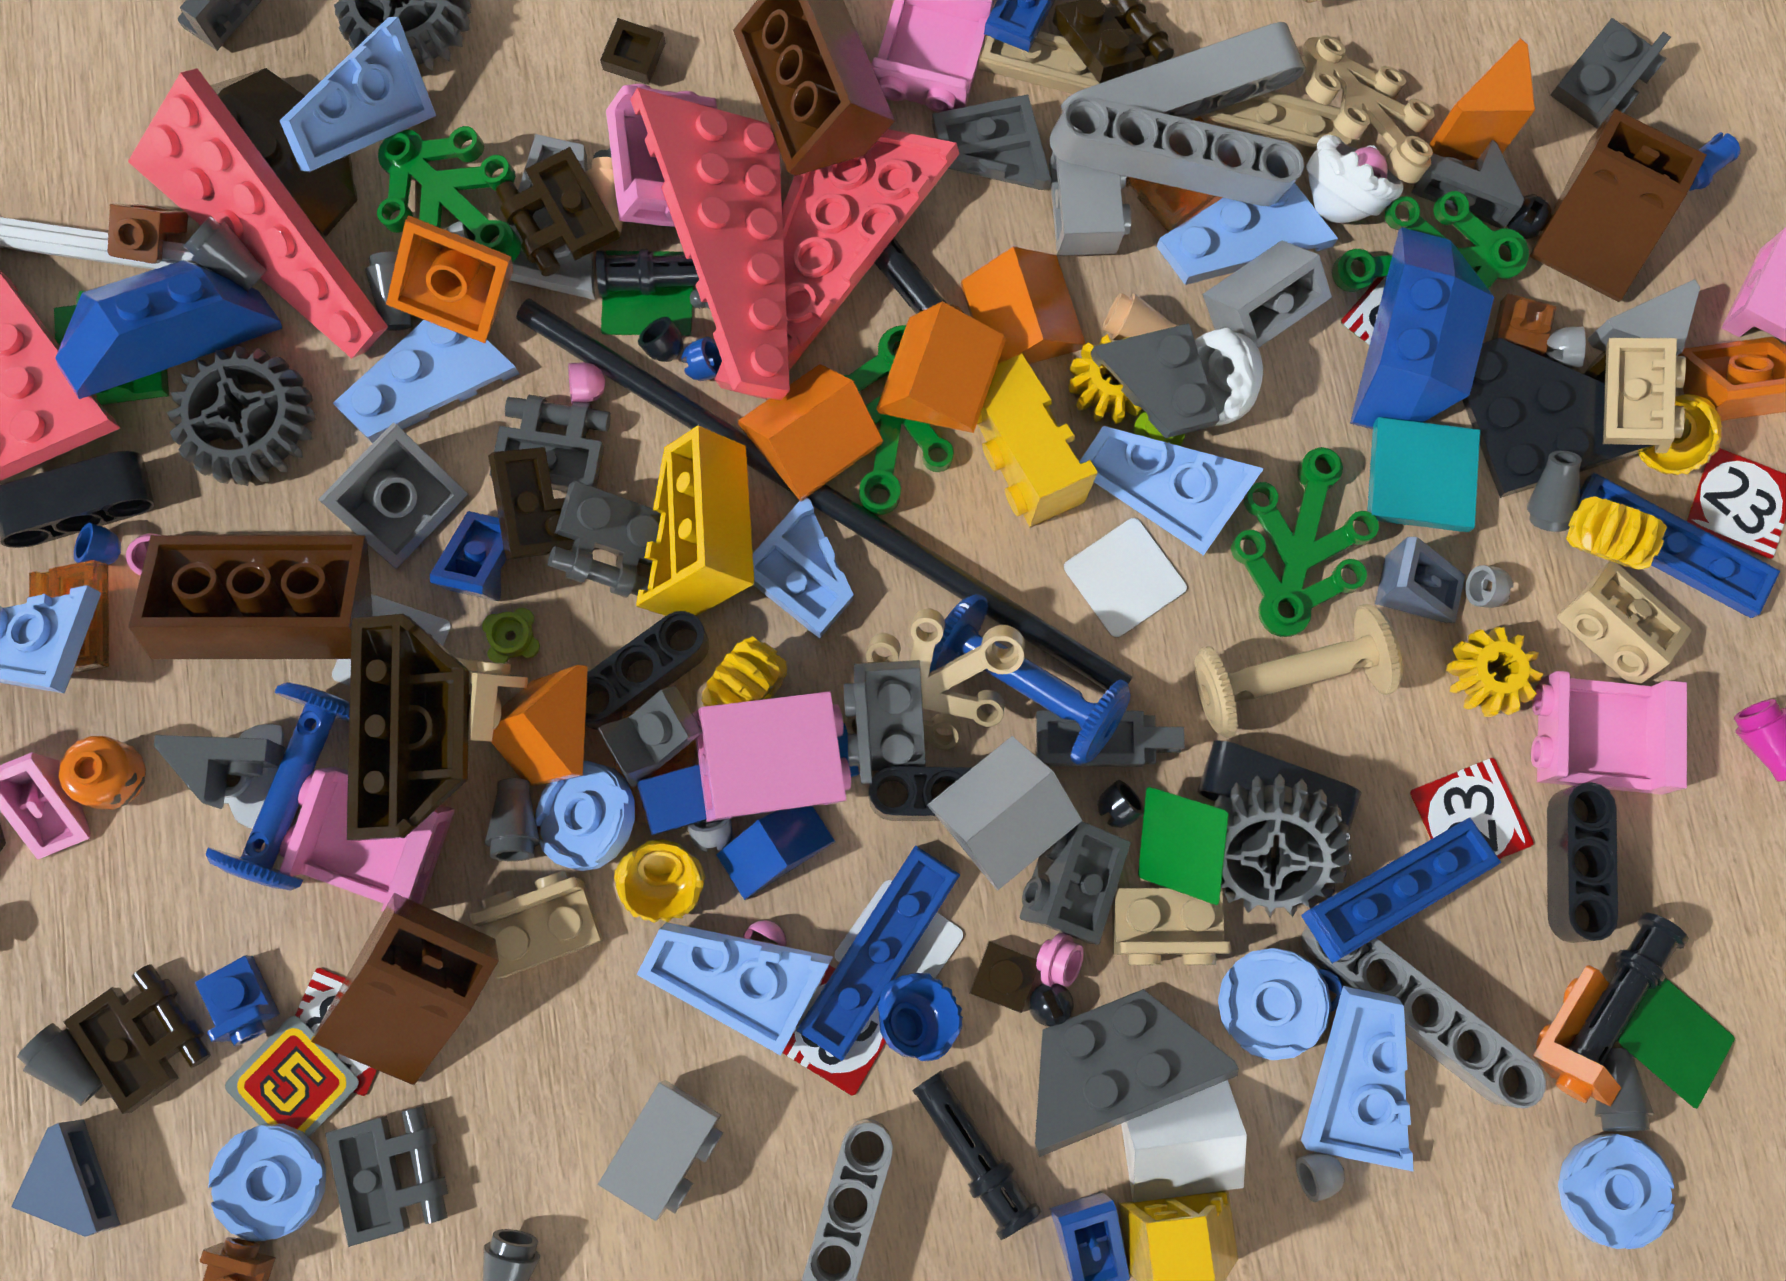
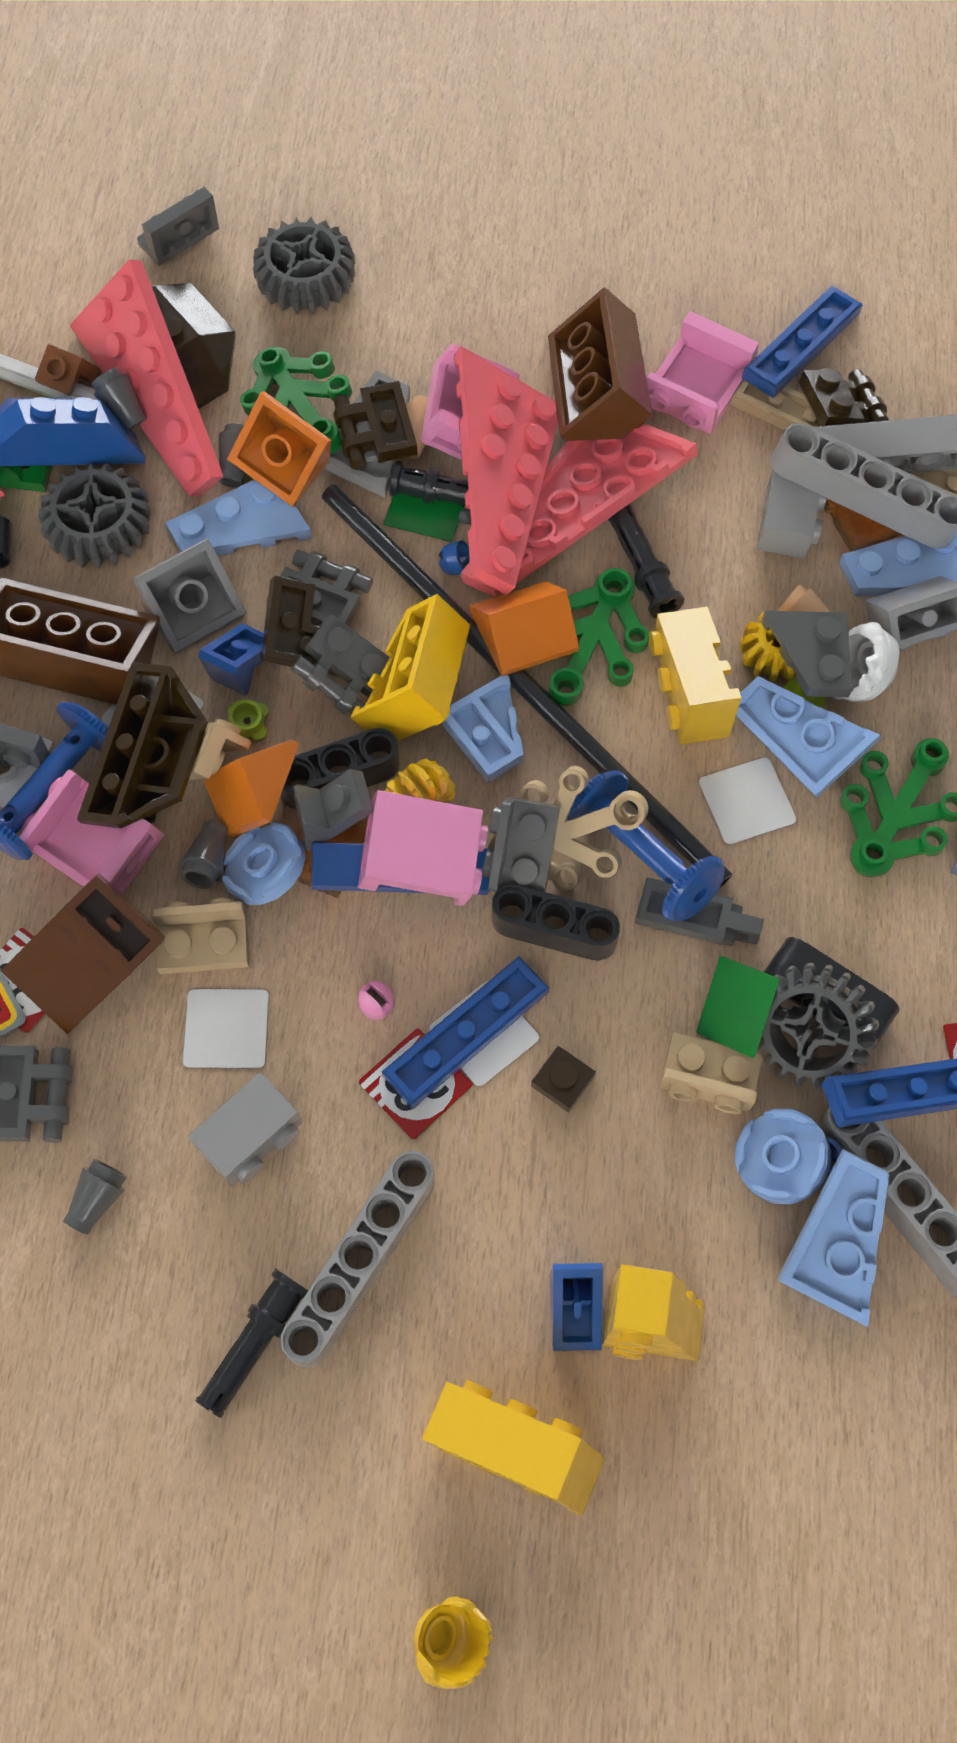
camera: 20 degrees right, 10 degrees down
(360, 100) = (252, 316): light blue wing -> none
(585, 382) = (361, 553): bright pink hinge -> none
(598, 1023) = (226, 1028): none -> white sticker
(633, 51) = (467, 330): dark brown plate -> none
(659, 881) = (307, 927): yellow hair -> none
(661, 340) = (428, 537): black hinge -> none
(707, 837) = (358, 903): light grey hinge -> none
(736, 980) = (346, 1019): light blue wing -> none
(773, 848) = (405, 927): blue slope -> none
(919, 1016) = (484, 1085): blue hair -> none
(942, 369) = (641, 601): orange slope -> none
(989, 1177) = (505, 1229): black pin -> none
(996, 141) = (730, 456): dark grey wing -> none
(1006, 811) = (599, 940): light grey slope -> none
(1027, 302) = (719, 575): orange slope -> none
(1040, 1010) = (586, 1113): black hinge -> none
(1059, 960) = (612, 1074): bright pink plate -> none
(1076, 883) = (642, 1015): dark grey bracket -> none
(1119, 1067) = (638, 1170): dark grey wing -> none
(1121, 804) = (696, 968): black hinge -> none
(1187, 1147) = (680, 1239): white slope -> none
(1320, 1175) = (786, 1308): light grey hinge -> none
(1373, 650) = (936, 897): tan hose -> none

